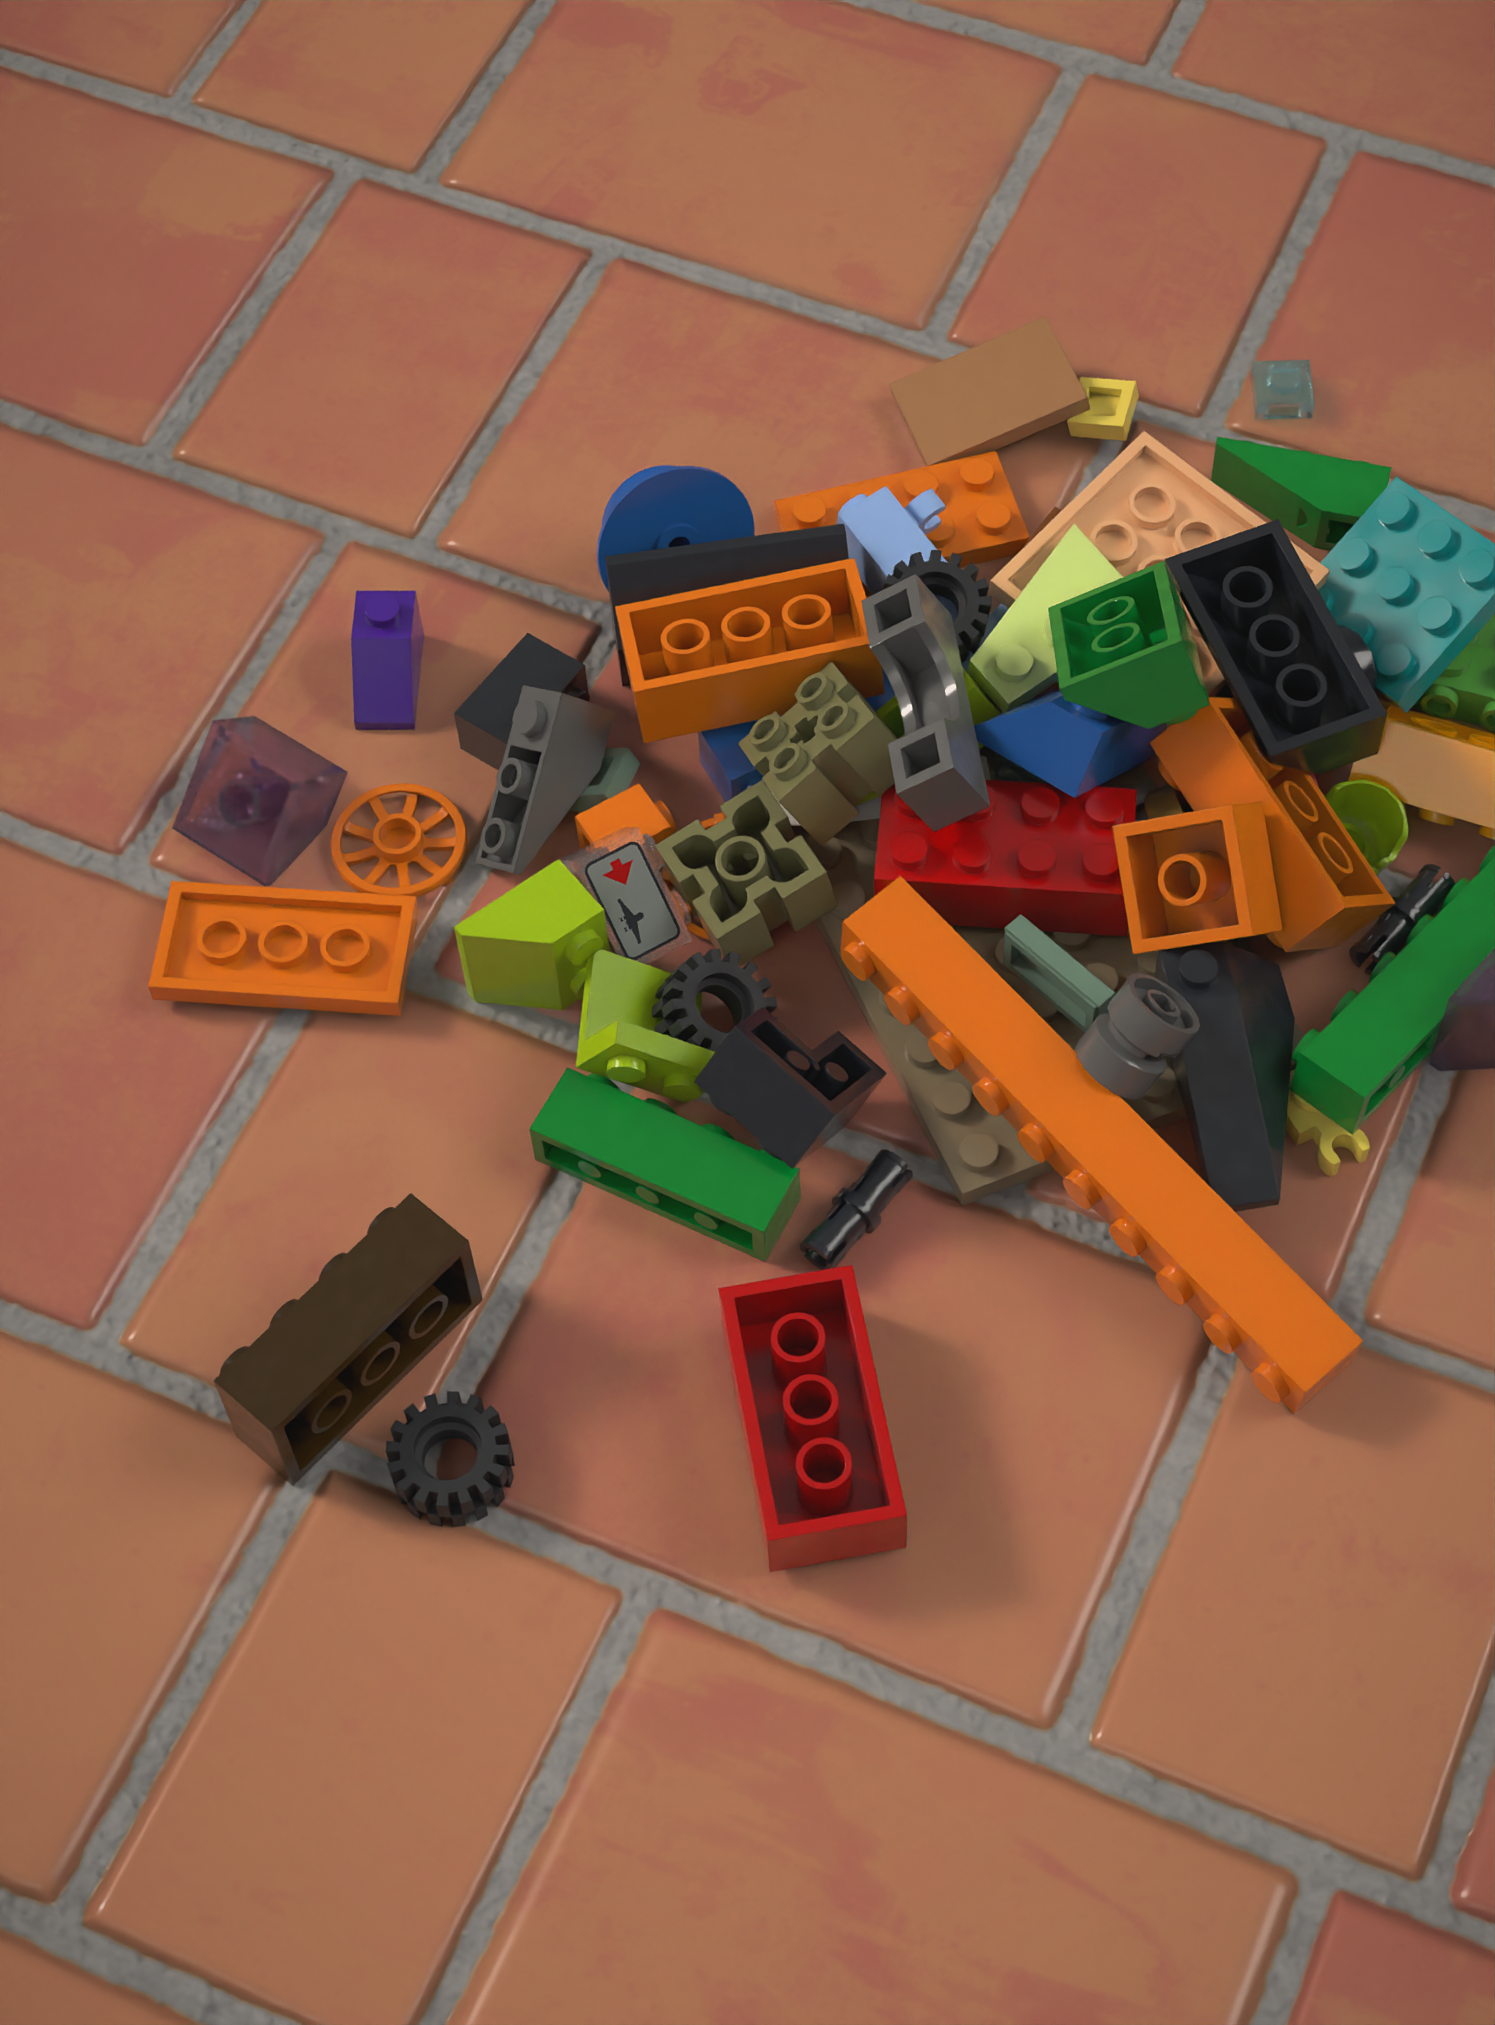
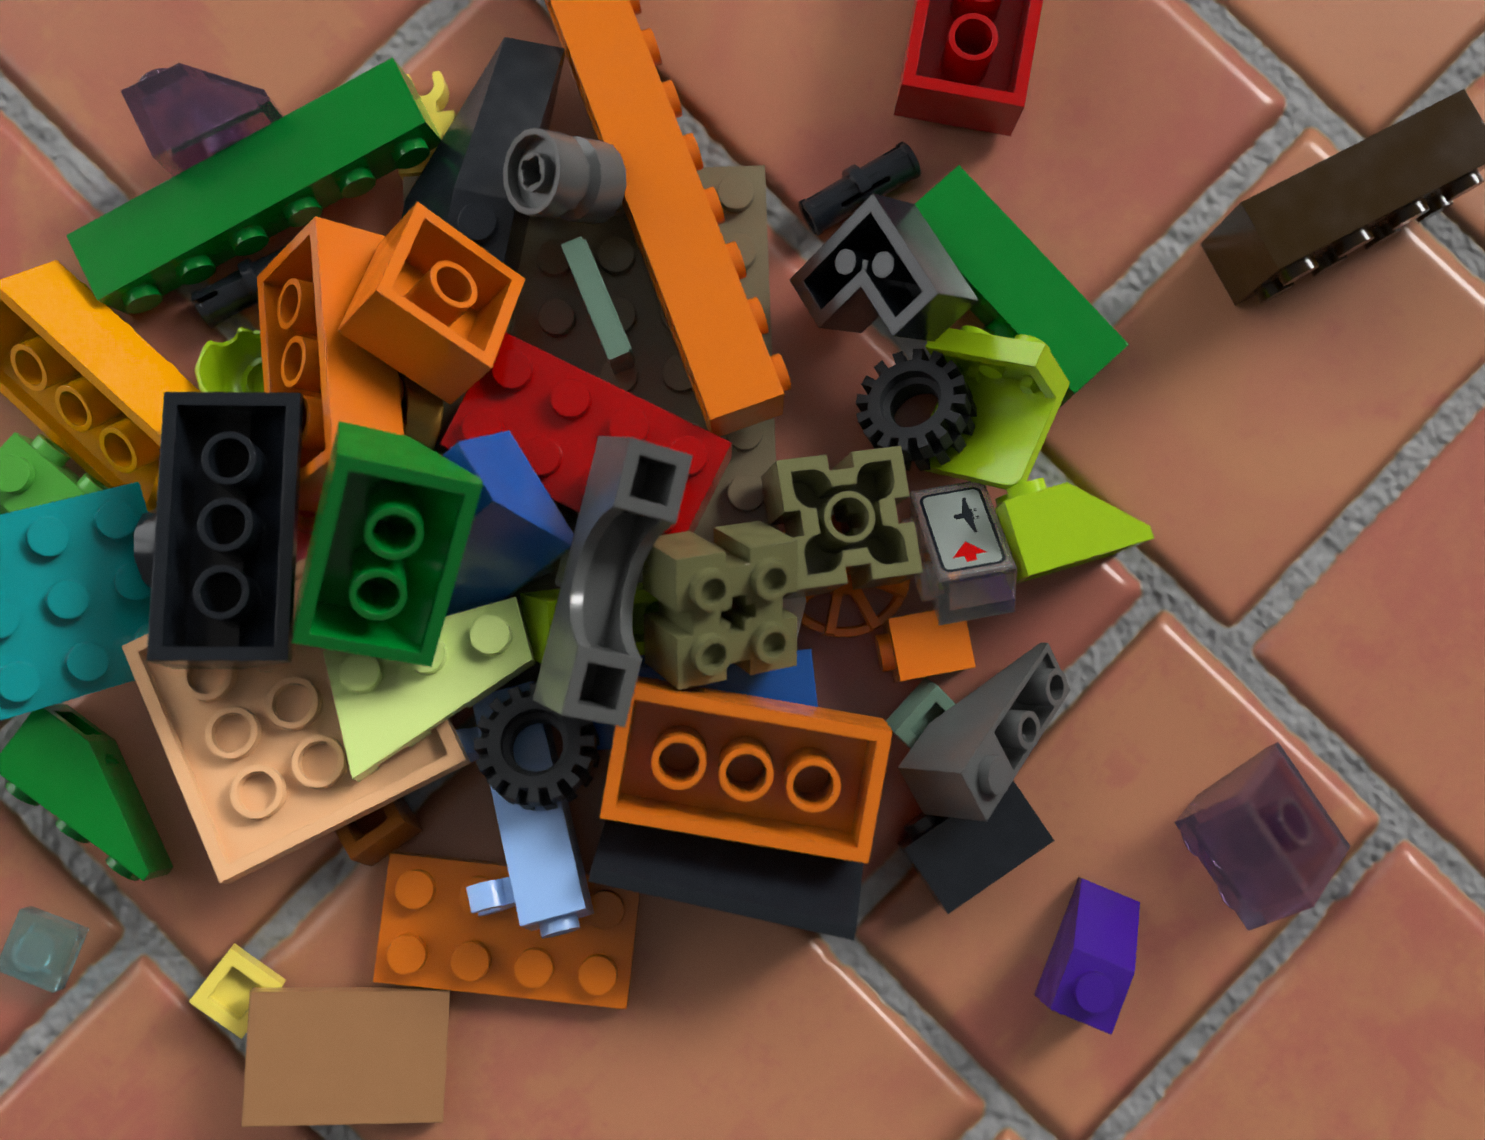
camera: 165 degrees left, 25 degrees up
(284, 948) = (1285, 653): orange plate -> none
(399, 842) = (1135, 742): orange wheel -> none
(443, 1422) = (1297, 66): black tyre -> none
(671, 509) = (759, 981): blue piece -> none

